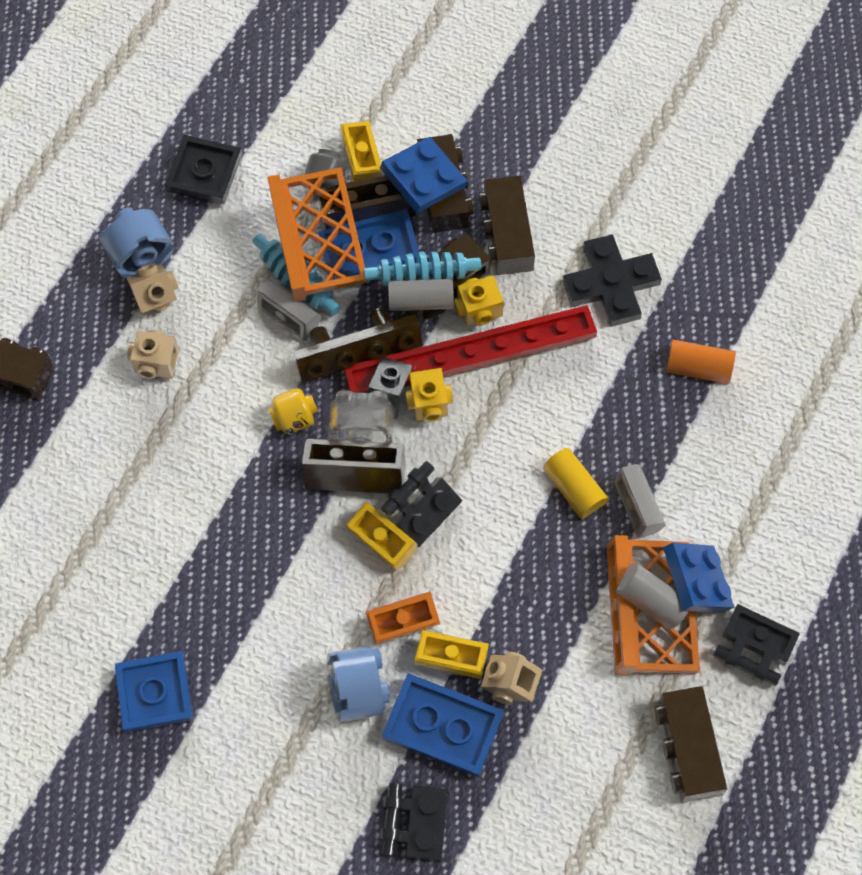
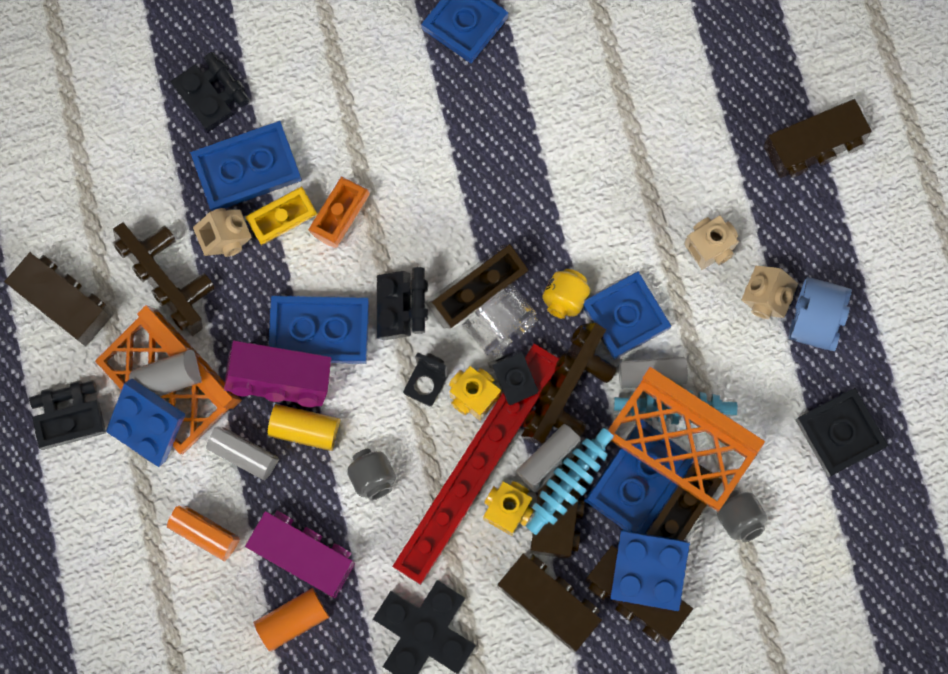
camera: 140 degrees right, 10 degrees up
(264, 361) = (627, 314): none -> blue plate
(357, 683) = (326, 134): medium blue brick -> none
(360, 150) = (733, 563): yellow brick -> none
(382, 536) = (407, 254): yellow brick -> none
(440, 441) = (430, 367): none -> black bracket
(501, 543) = (321, 326): none -> blue plate
(556, 403) = (371, 474): none -> dark grey head
(565, 524) = (277, 374): none -> magenta brick
(598, 706) = (164, 291): none -> dark brown plate
(656, 394) = (301, 553): none -> magenta brick
(716, 469) = (203, 532): none -> orange brick

